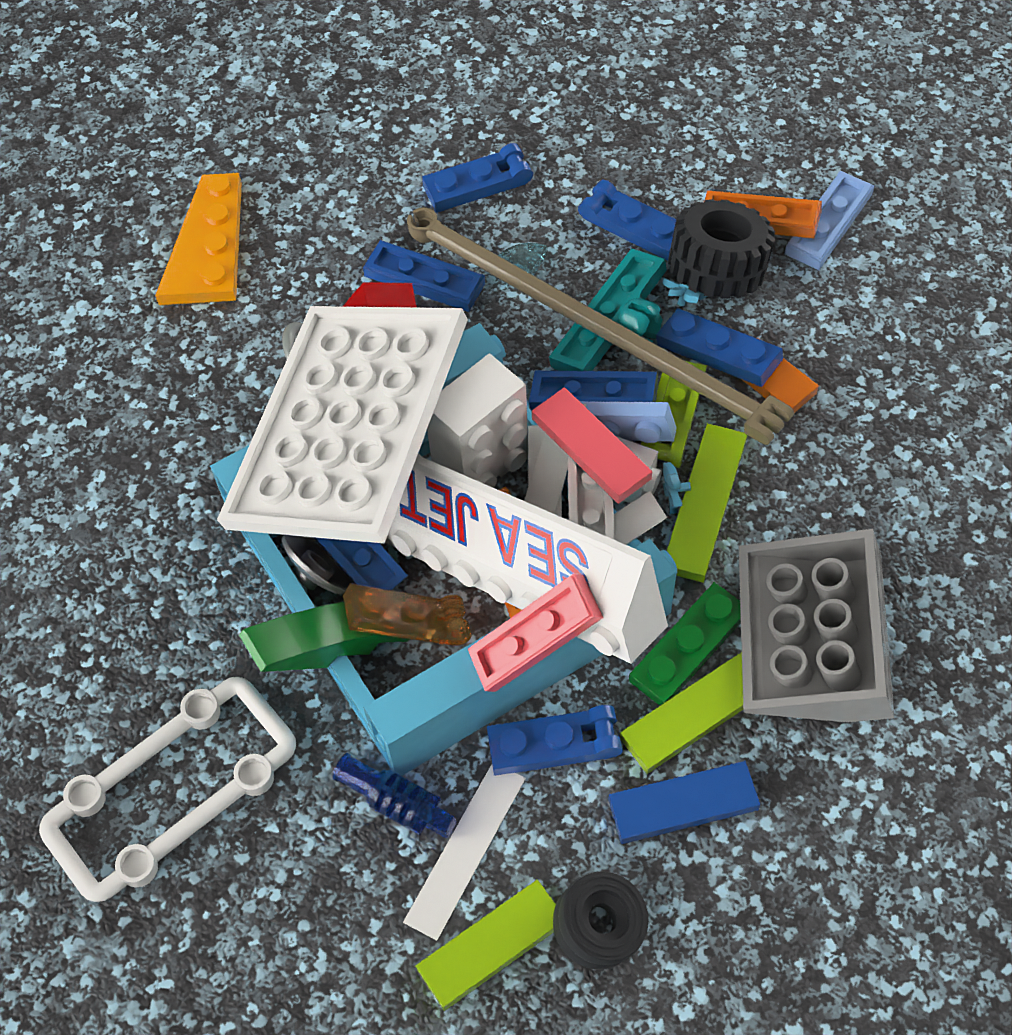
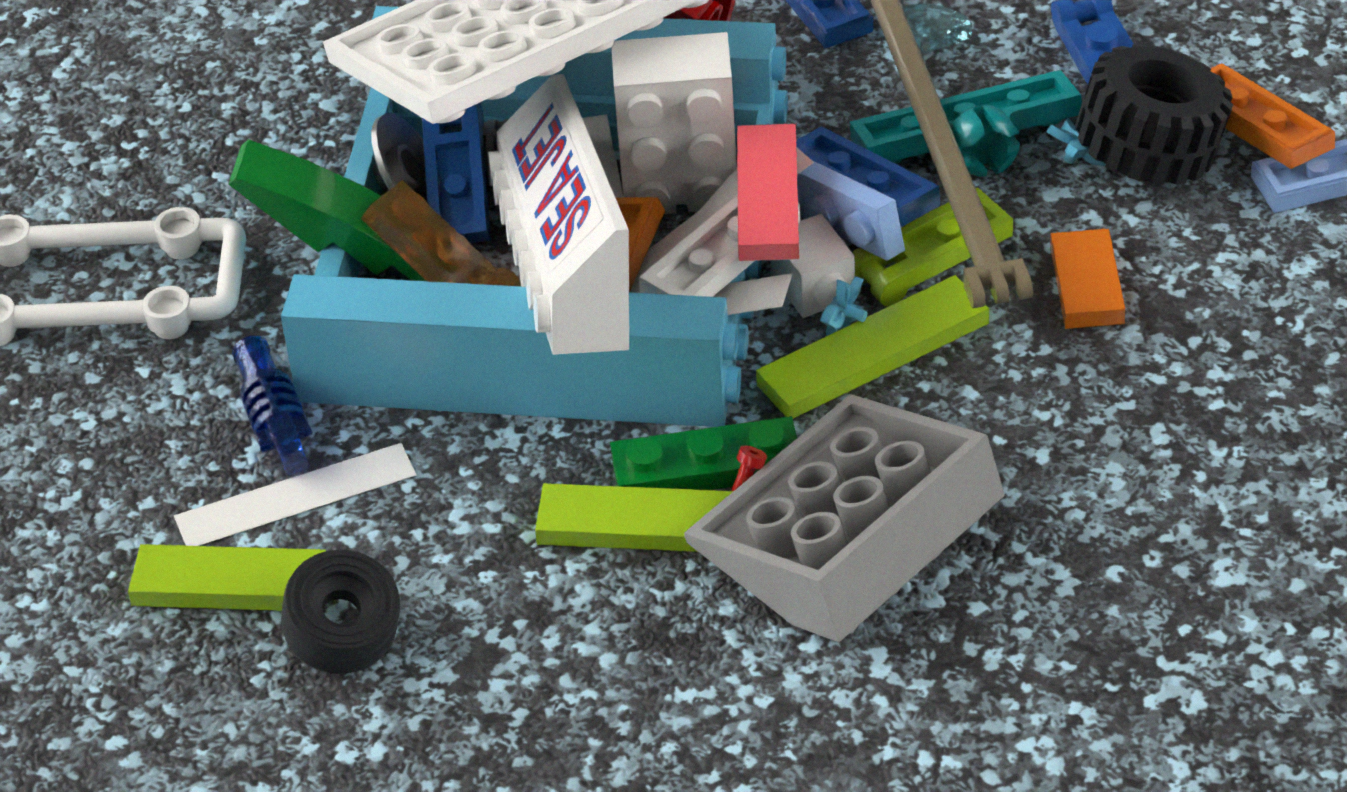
camera: 40 degrees right, 15 degrees down
(535, 632) = (491, 277): coral tile -> none
(553, 741) = (474, 456): blue plate -> none
(683, 802) = (542, 583): blue tile -> none
(719, 347) = (1051, 212): blue plate -> none
(730, 630) = (750, 460): none -> red piece

